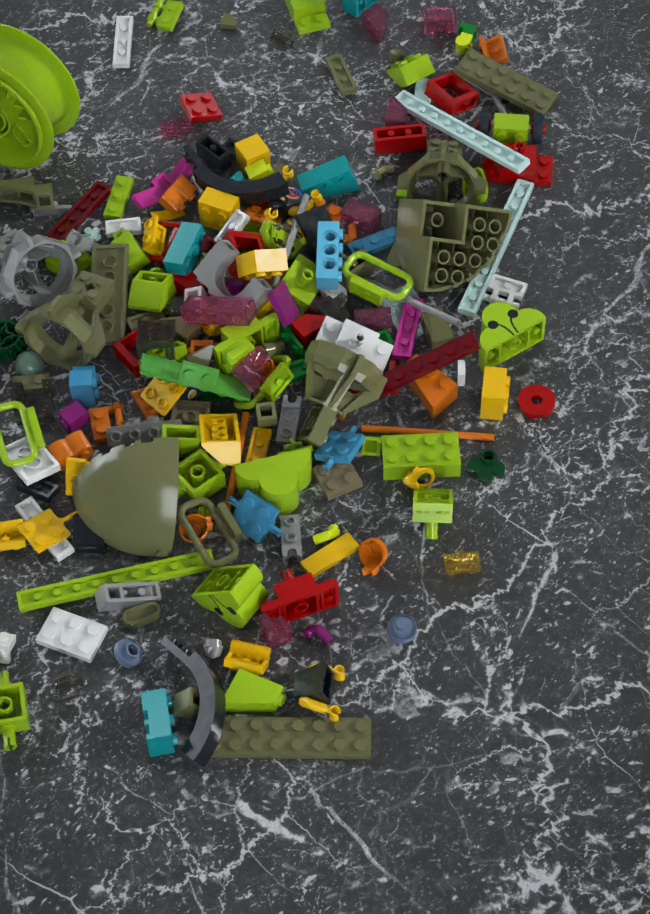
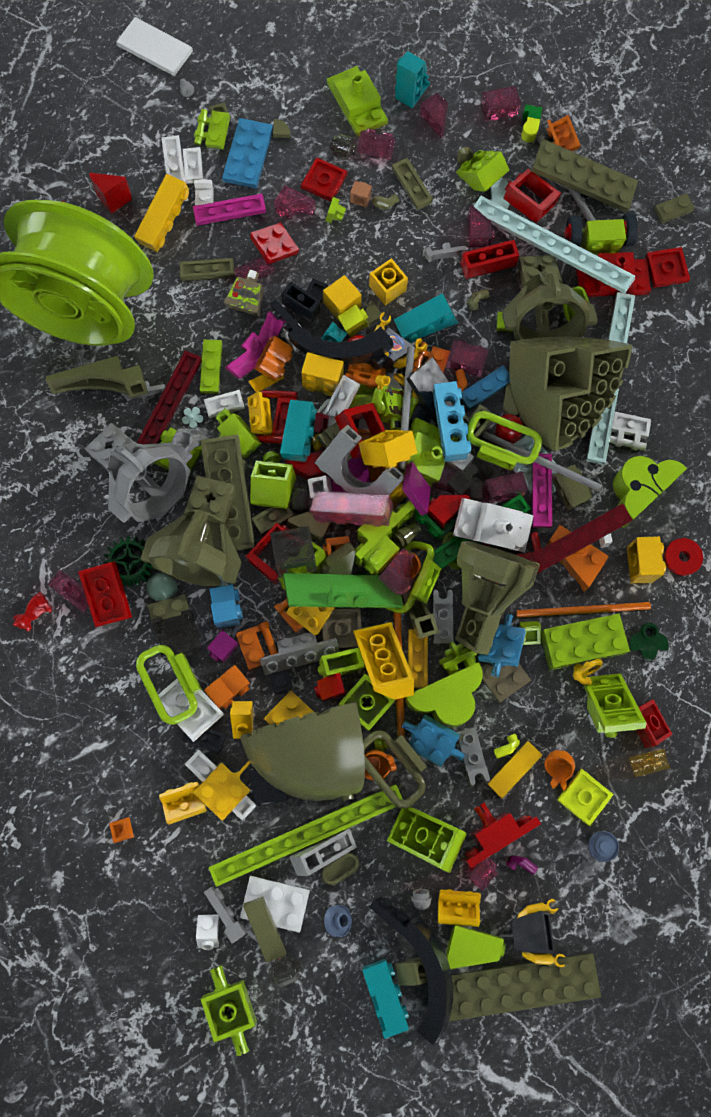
camera: 15 degrees left, 20 degrees up
(26, 644) = (234, 929): none -> light grey plate
(56, 647) = (264, 929): none -> olive tile
(63, 47) = (111, 190): none -> red slope
(103, 71) = (162, 212): none -> yellow brick
(133, 122) = (207, 269): none -> olive tile
(140, 40) = (192, 164): none -> white plate
(145, 63) = (203, 192): none -> white bracket
(164, 143) = (246, 294): none -> torso
(165, 77) = (229, 209): none -> dark pink plate
(193, 37) = (247, 153): none -> dark azure plate
(224, 77) = (292, 203): none -> clear pink arch
(259, 64) = (324, 179): none -> red tile
(263, 88) = (335, 211): none -> lime tile
(290, 77) = (360, 193): none -> nougat plate
(299, 147) = (388, 282): none -> yellow head
(311, 87) = (384, 203): none -> olive arm
(314, 41) = (376, 144): none -> clear pink bracket
(360, 132) = (446, 252): none -> light grey piece
(388, 279) = (506, 433): none -> red hair
(394, 588) = (585, 797): none -> neon yellow tile
(470, 531) = (656, 726): none -> red slope
(572, 165) = (667, 267): none -> red plate
(589, 120) = (674, 208): none -> olive plate

